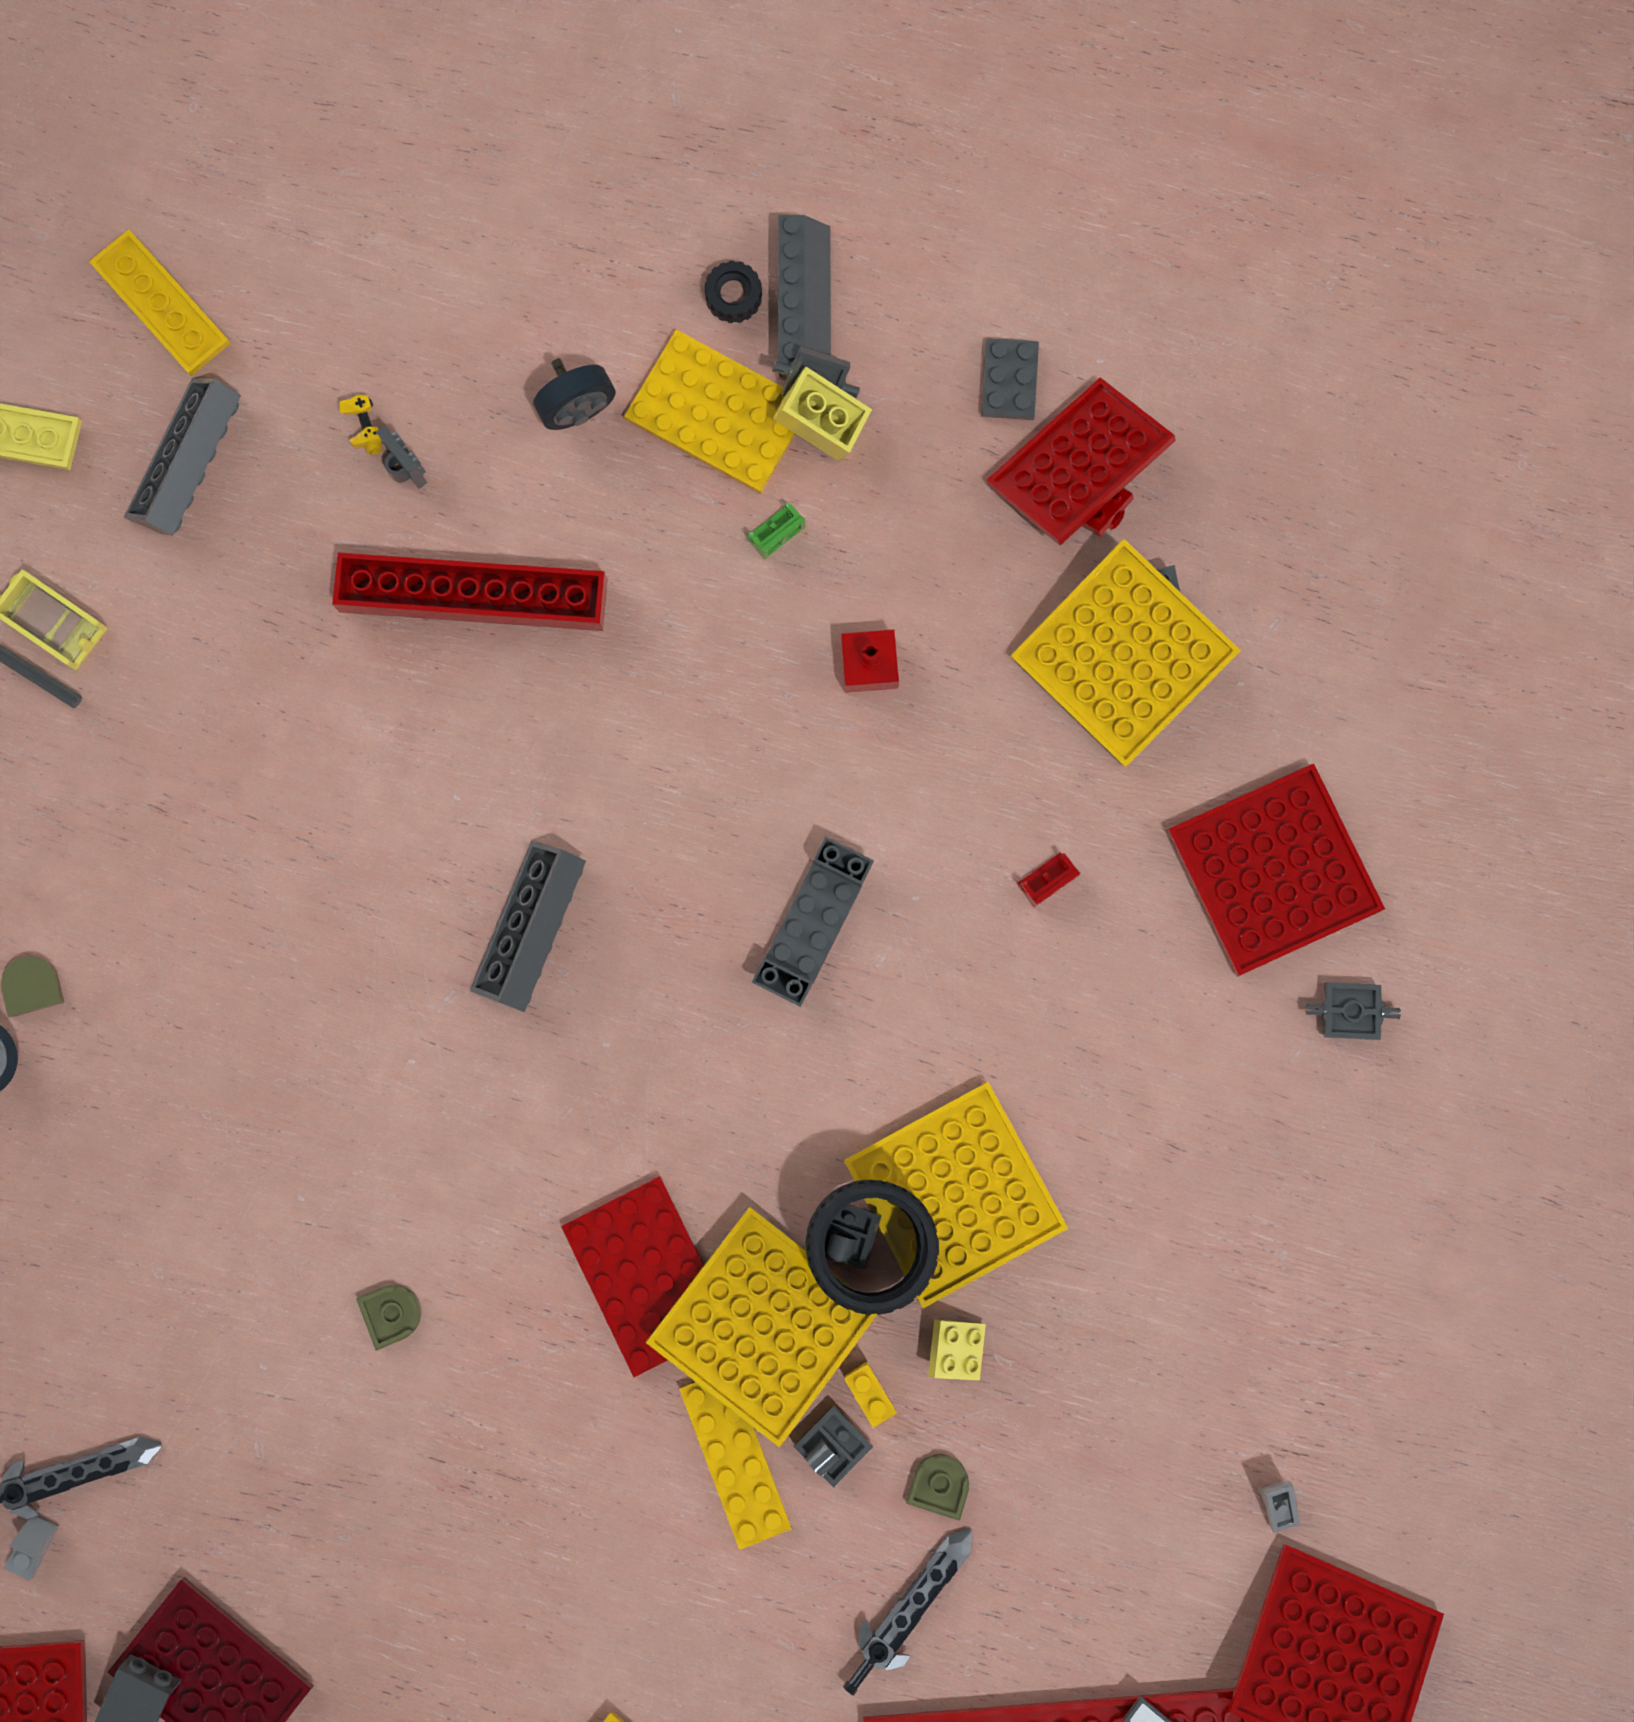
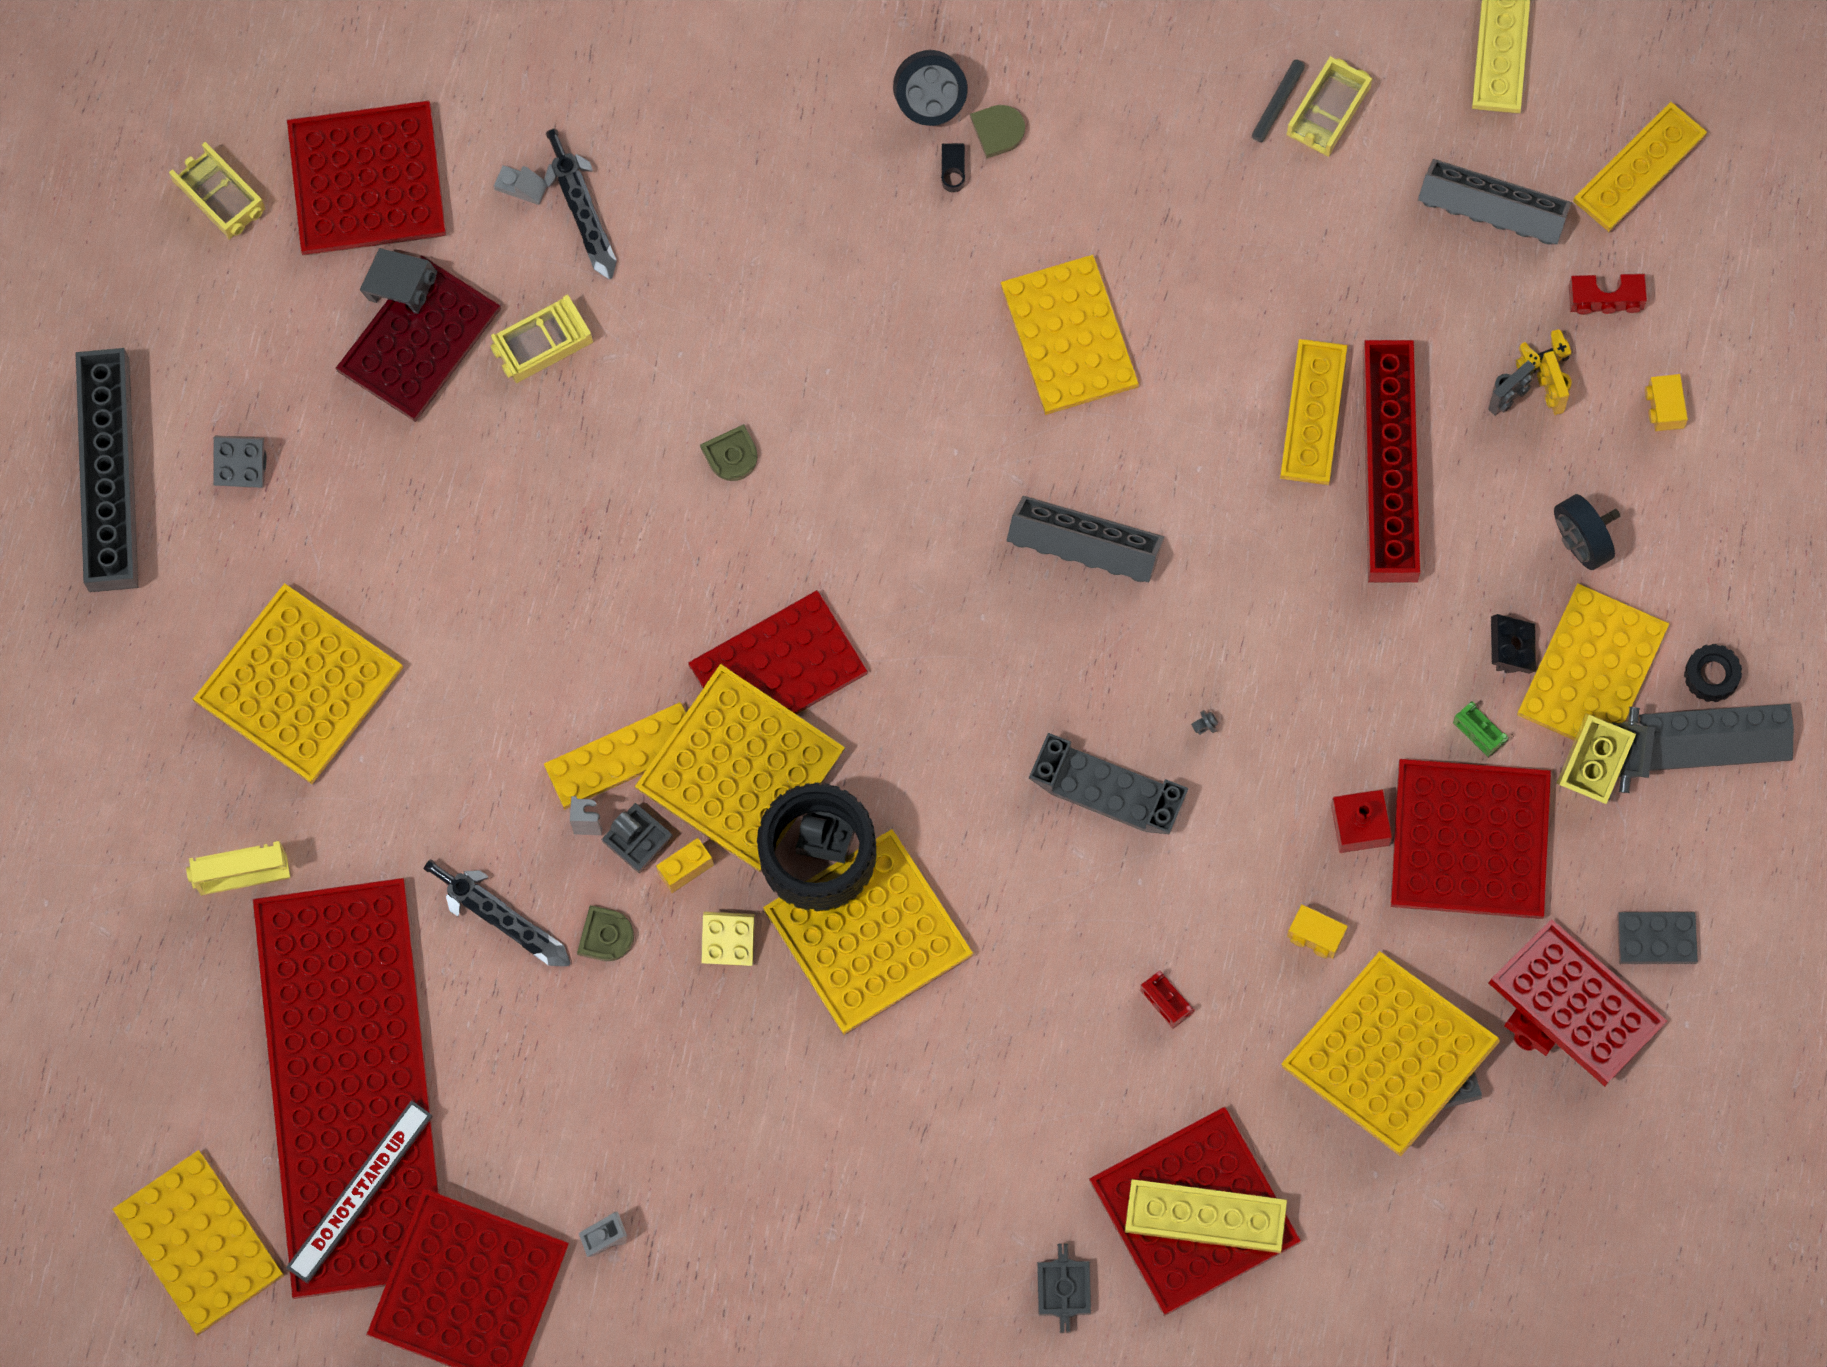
camera: 90 degrees right, 10 degrees down
(65, 1040) = (953, 162): none -> black piece
(229, 1532) = (541, 340): none -> light yellow door
(286, 926) = (1069, 334): none -> yellow plate
(303, 372) = (1588, 298): none -> red arch
(401, 413) = (1555, 383): none -> yellow plate
(405, 669) = (1313, 412): none -> yellow plate
(432, 304) = (1666, 402): none -> yellow brick
(699, 495) = (1504, 653): none -> black piece
(747, 811) = (1207, 722): none -> dark grey plate
(809, 1511) = (584, 822): none -> light grey hinge
(894, 552) = (1471, 838): none -> red plate
(985, 718) = (1316, 932): none -> yellow brick
(1288, 857) = (1206, 1216): none -> light yellow plate

